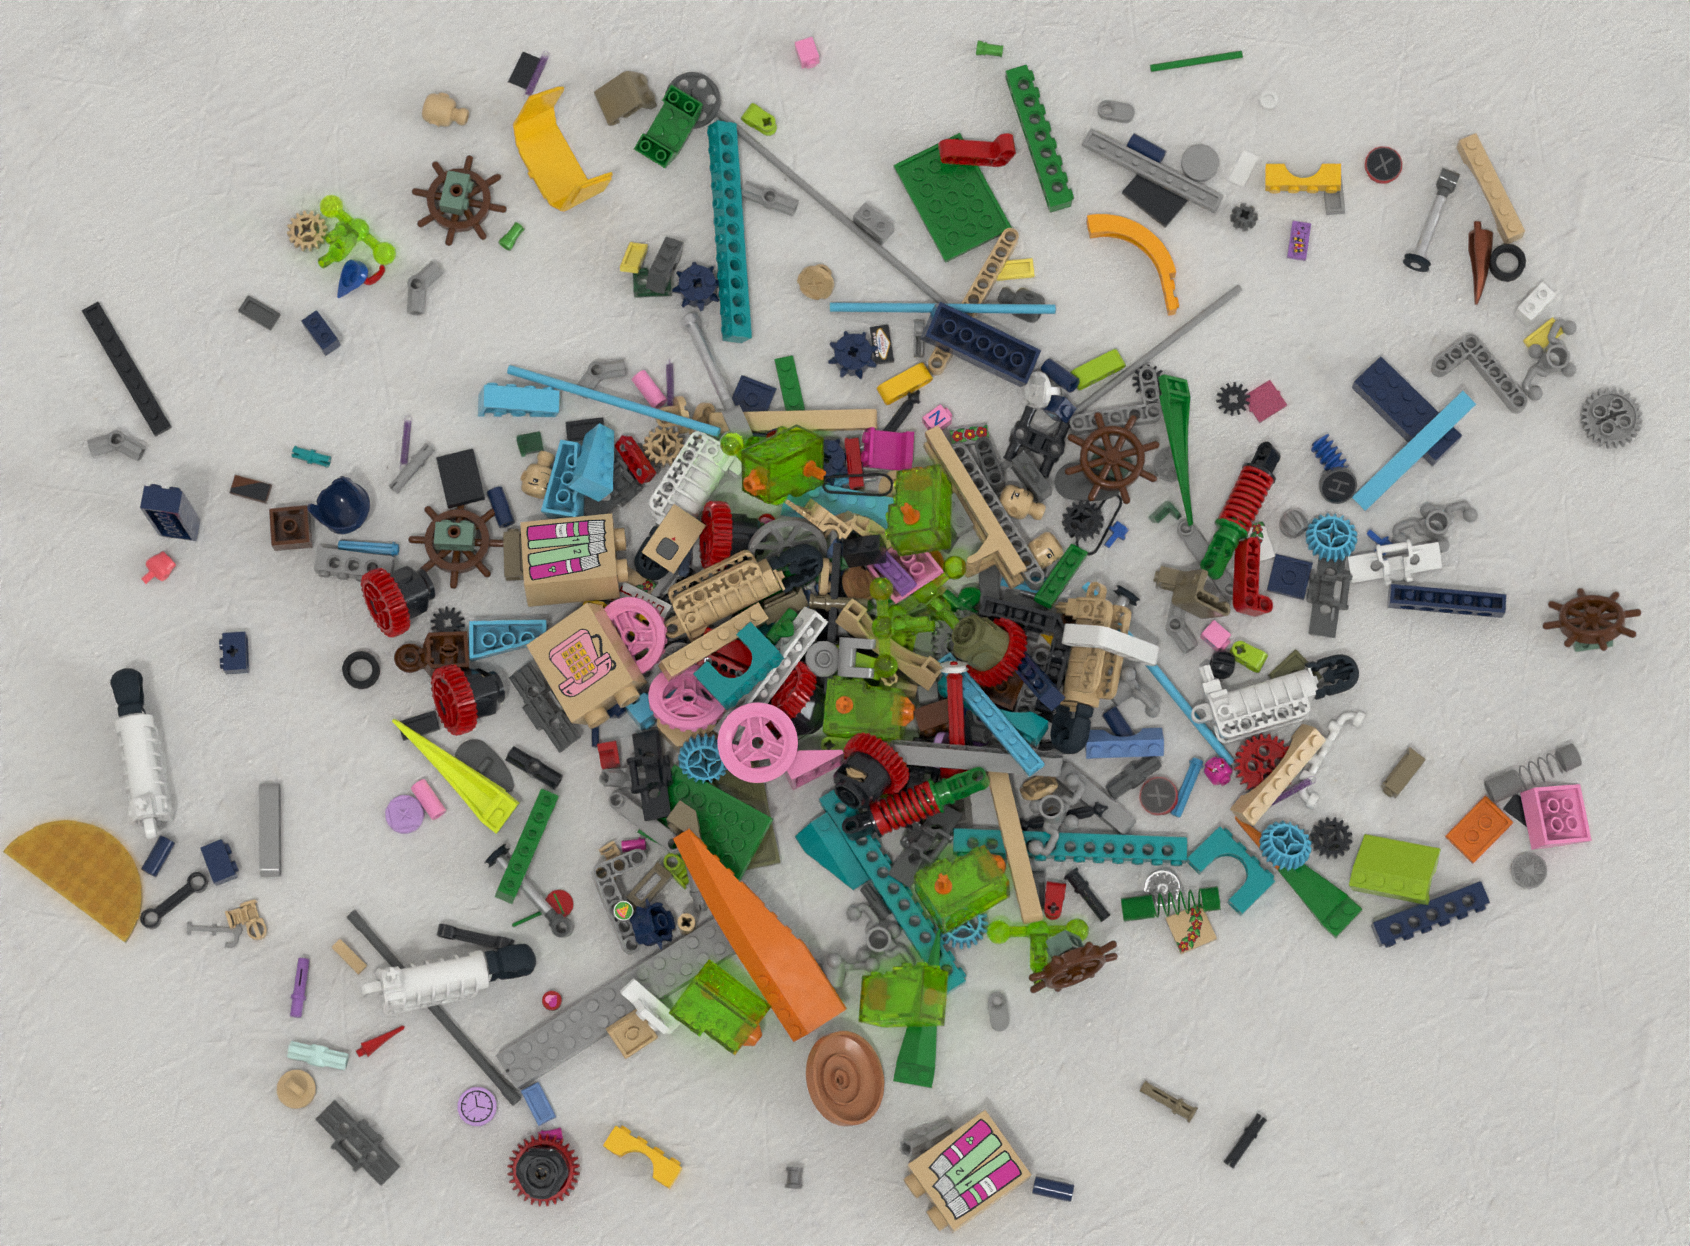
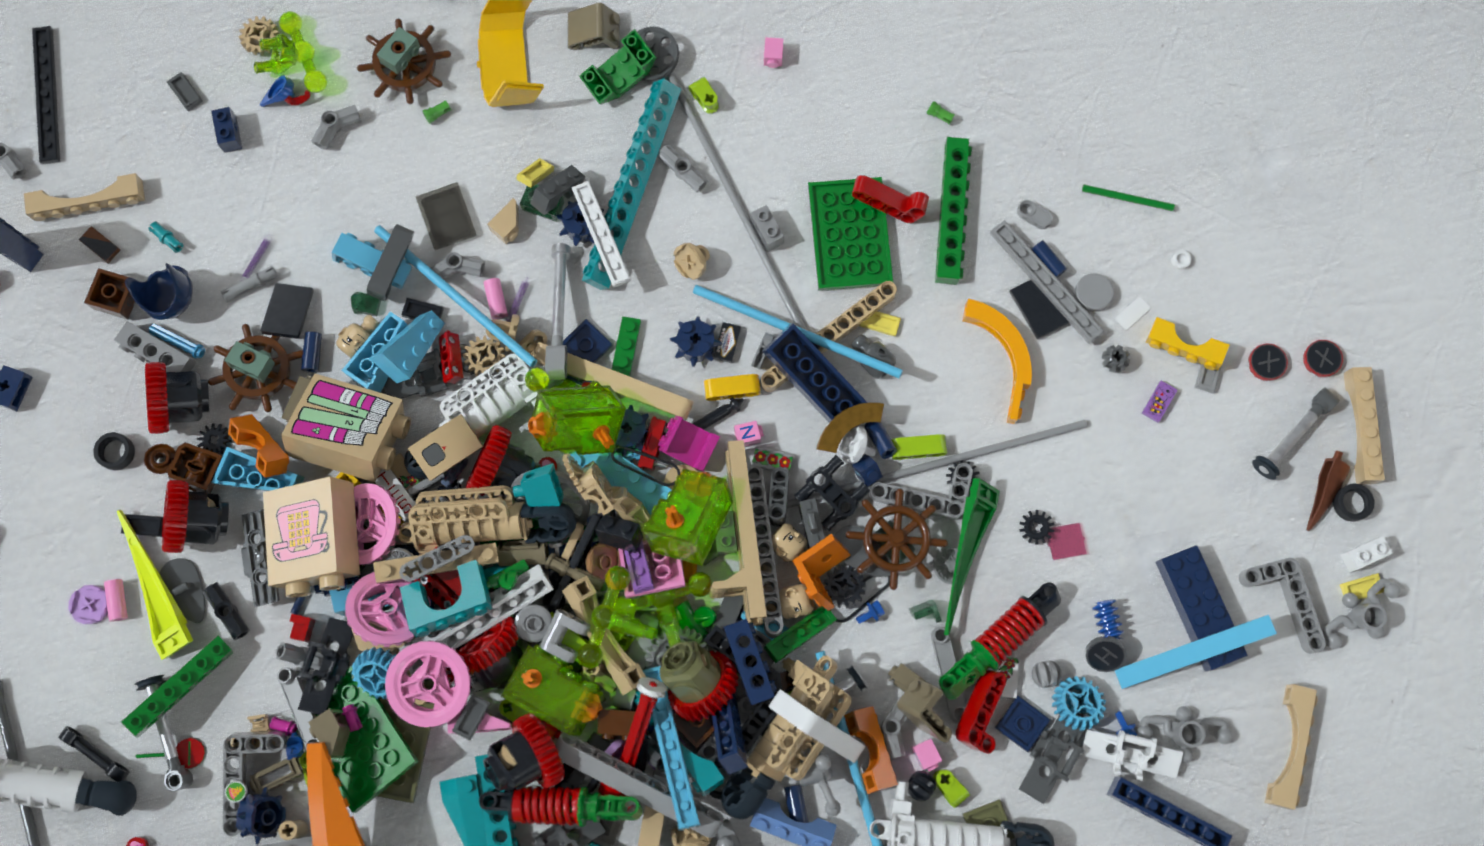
camera: 20 degrees right, 0 degrees up
(182, 473) = (126, 190): none -> tan arch
(483, 601) = (270, 457): none -> orange arch
(540, 395) = (389, 262): none -> dark grey beam
(566, 331) = (446, 216): none -> clear smoke piece
(627, 316) = (506, 222): none -> tan slope
(654, 855) = (294, 746): none -> blue piece
(696, 805) = (352, 717): none -> dark pink pin
(716, 634) = (438, 560): none -> light grey beam
(725, 290) = (601, 234): none -> white tile
(778, 537) = (540, 487): none -> teal torso
(807, 757) = (471, 717): none -> dark grey tile
(1022, 372) = (846, 421): none -> pearl gold tile
(1043, 638) = (734, 633): none -> dark blue brick
(1048, 510) = (817, 562): none -> orange bracket
(1181, 667) = (879, 773): none -> orange arch
(1432, 141) = (1323, 358): none -> black tile
(1524, 458) = (1300, 705): none -> tan arch
(1618, 432) = (1402, 715): light grey gear -> none

